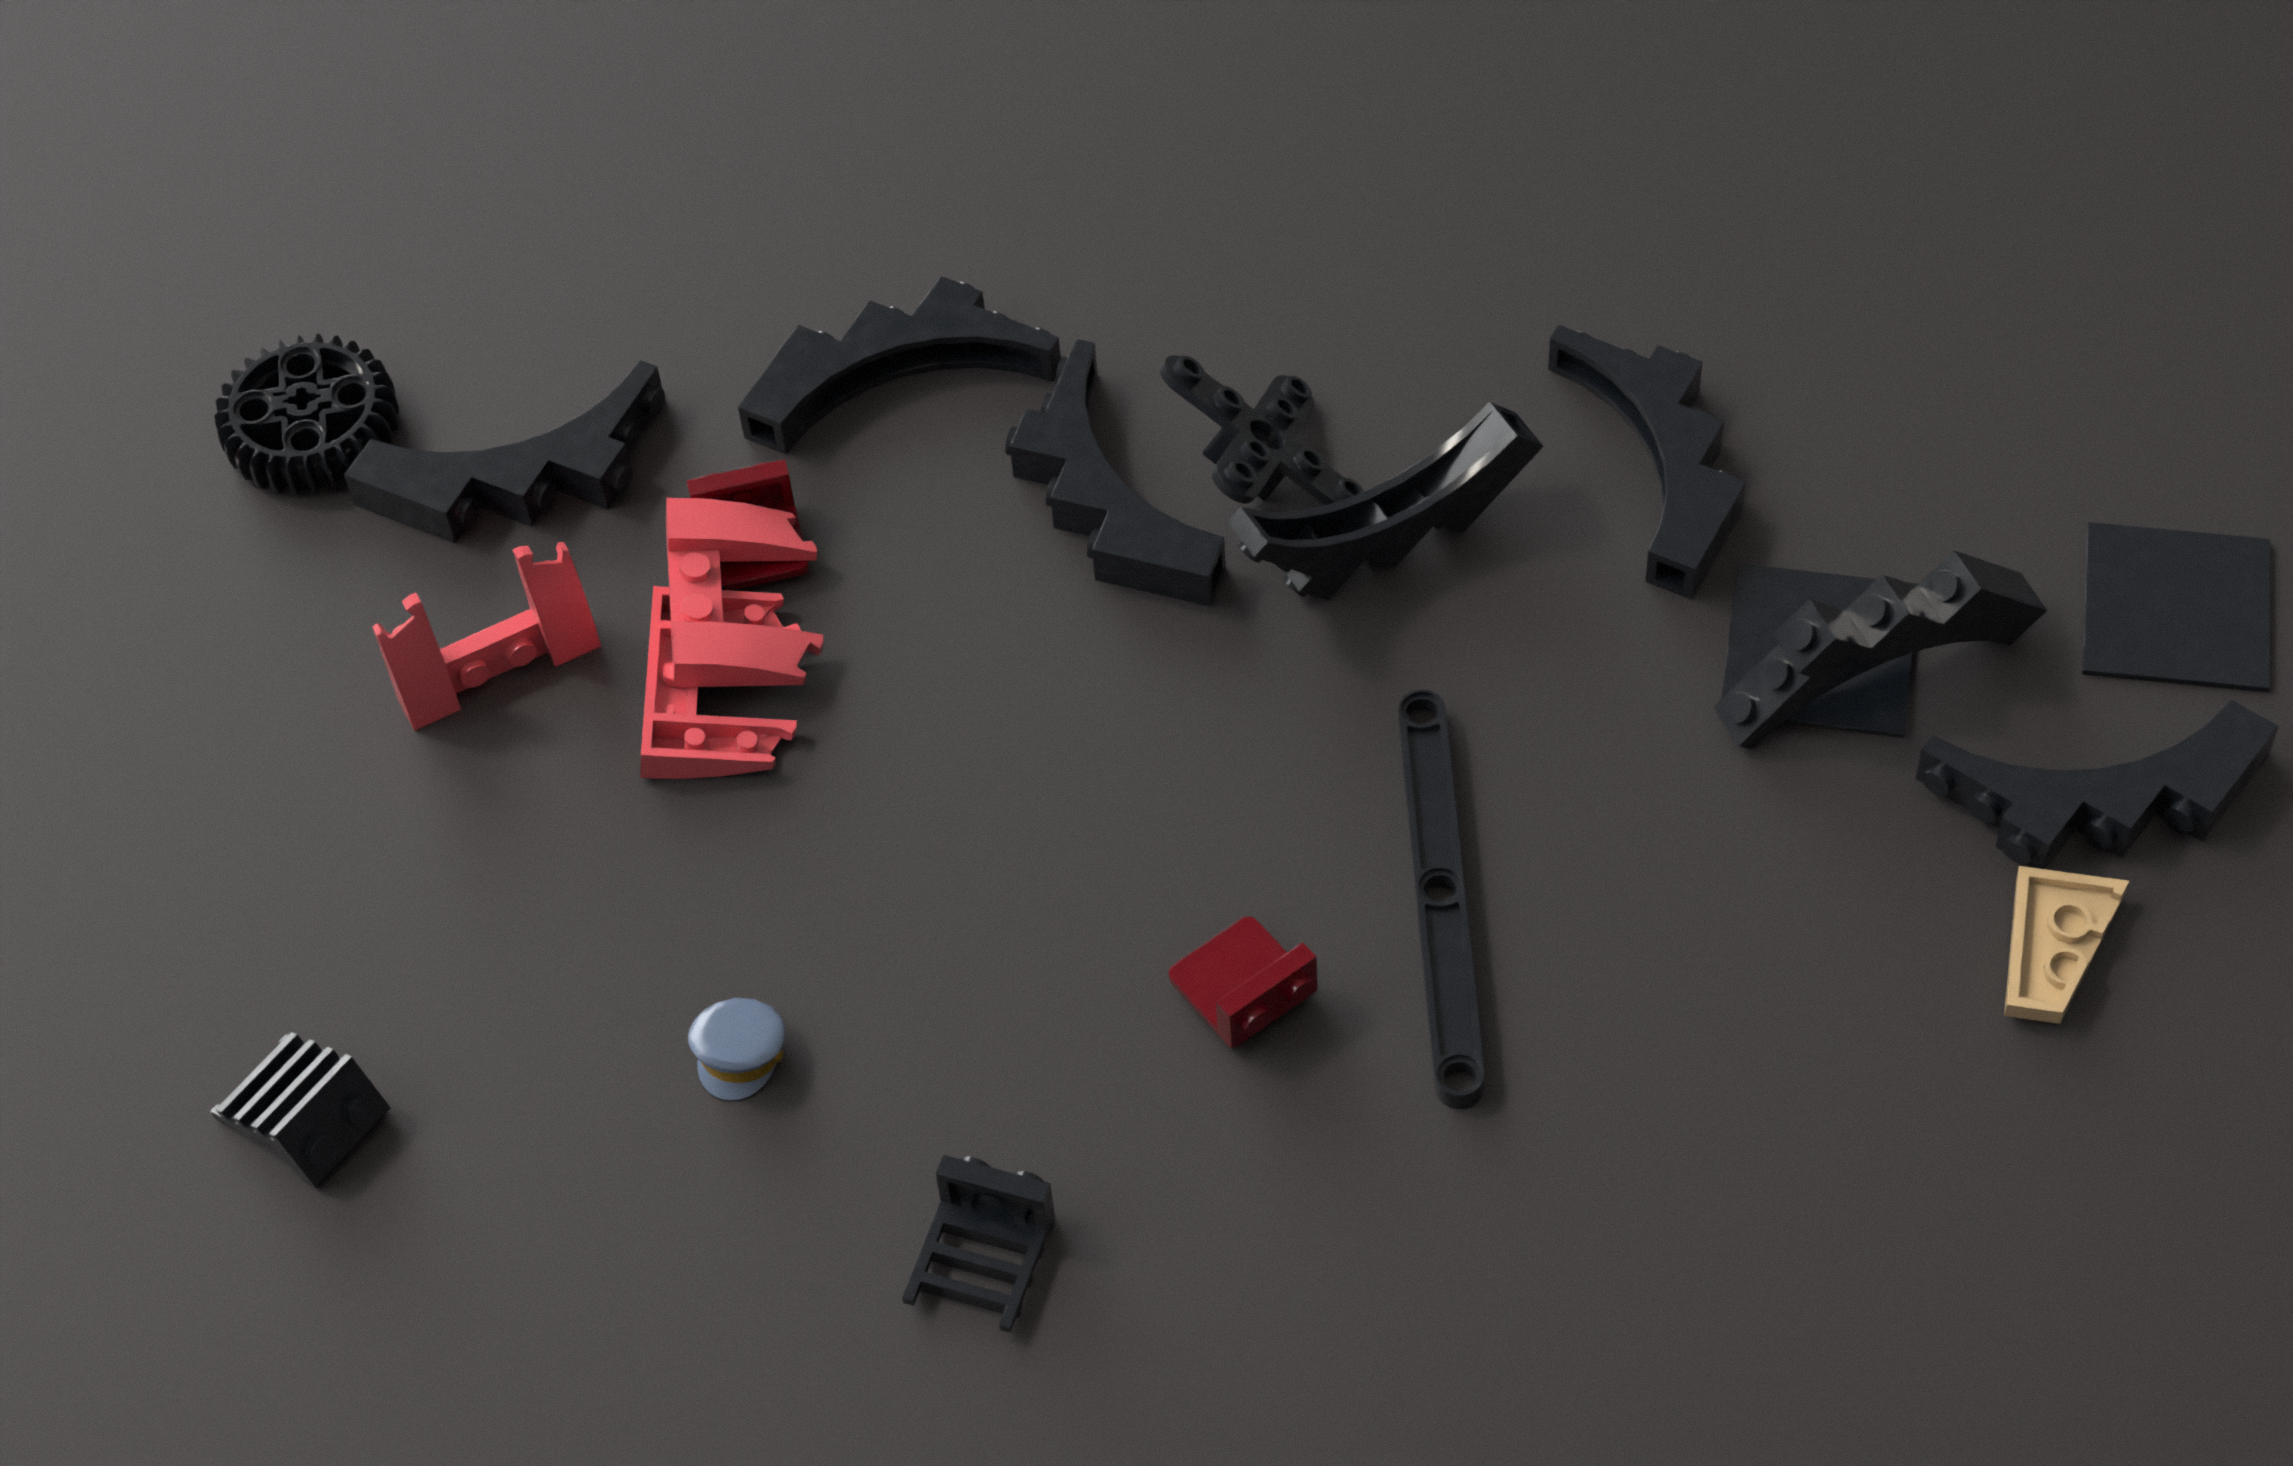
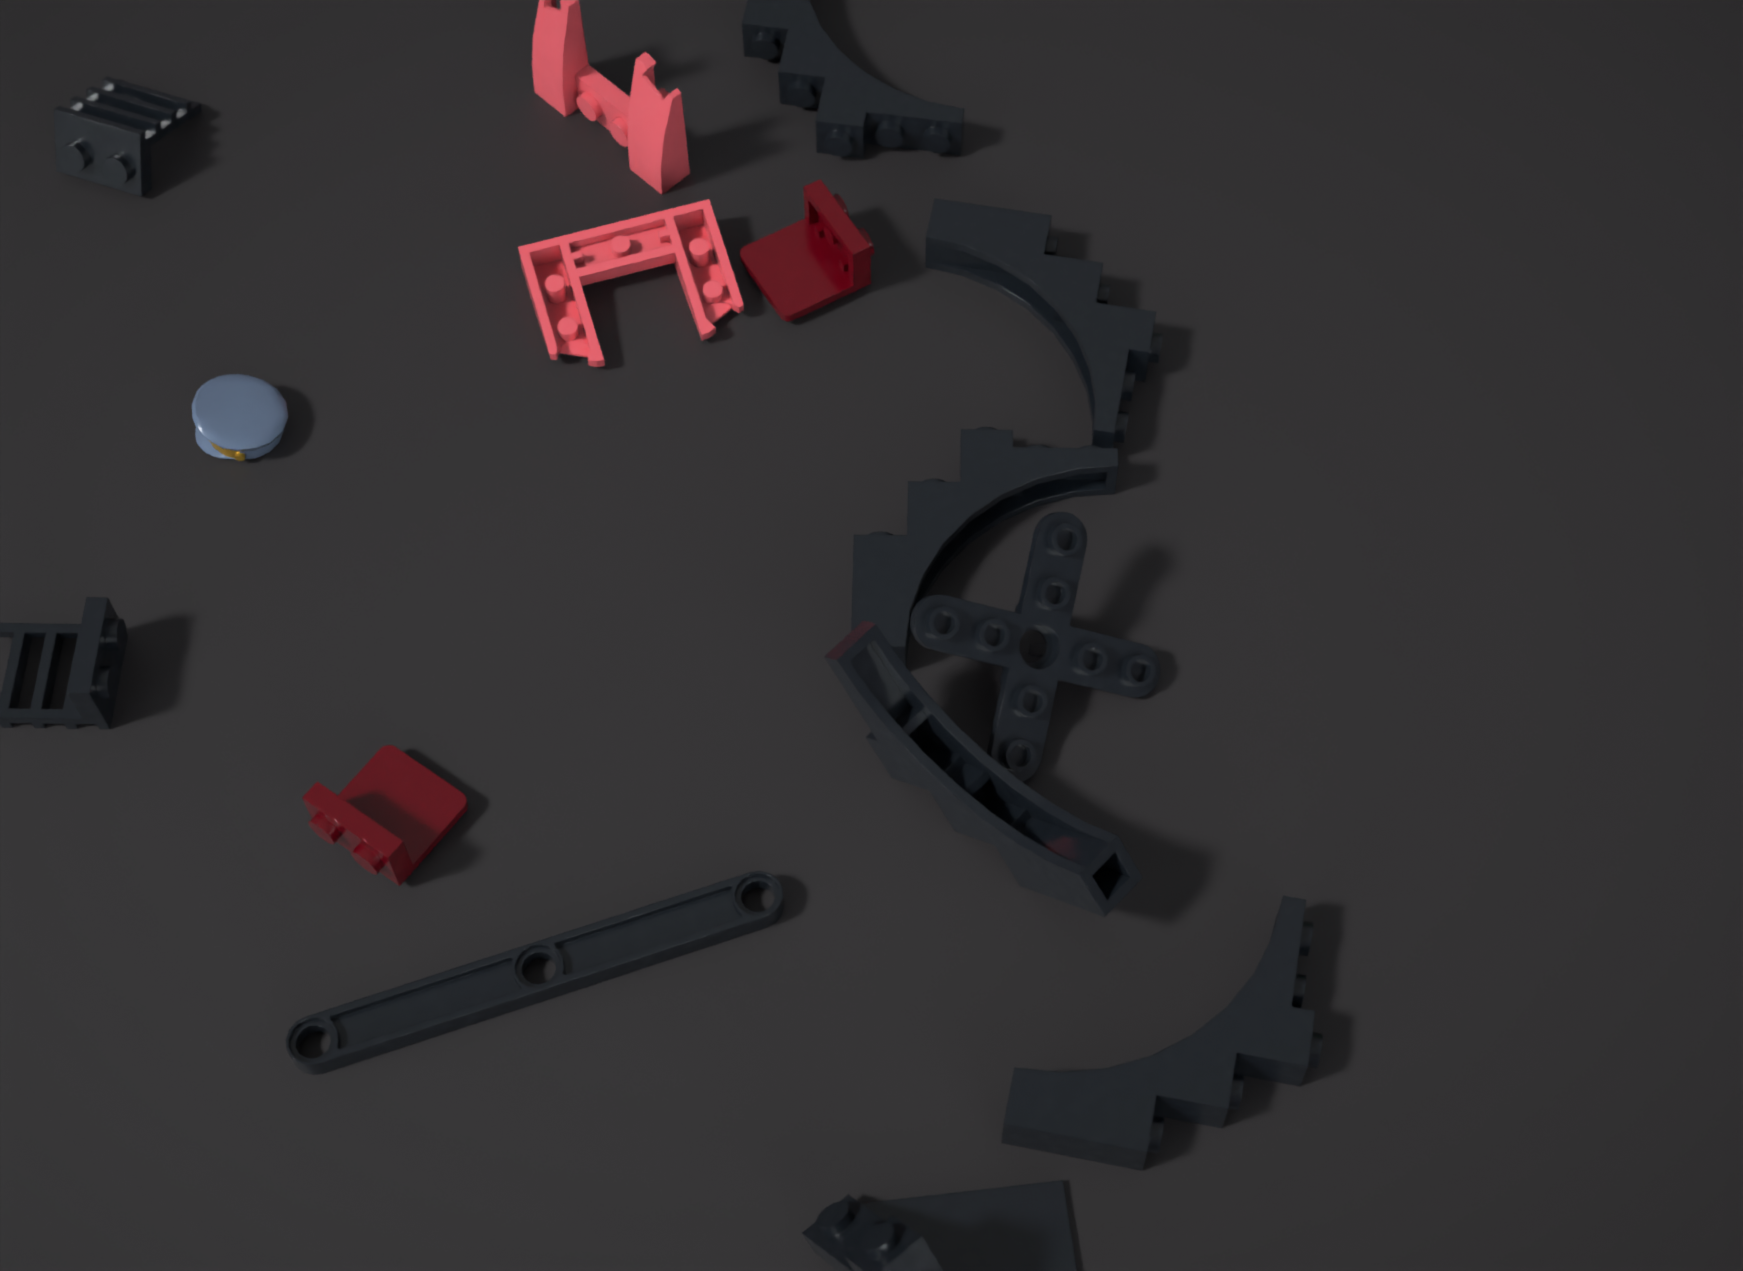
camera: 70 degrees right, 5 degrees up
(703, 646) = (763, 212): coral wedge -> none

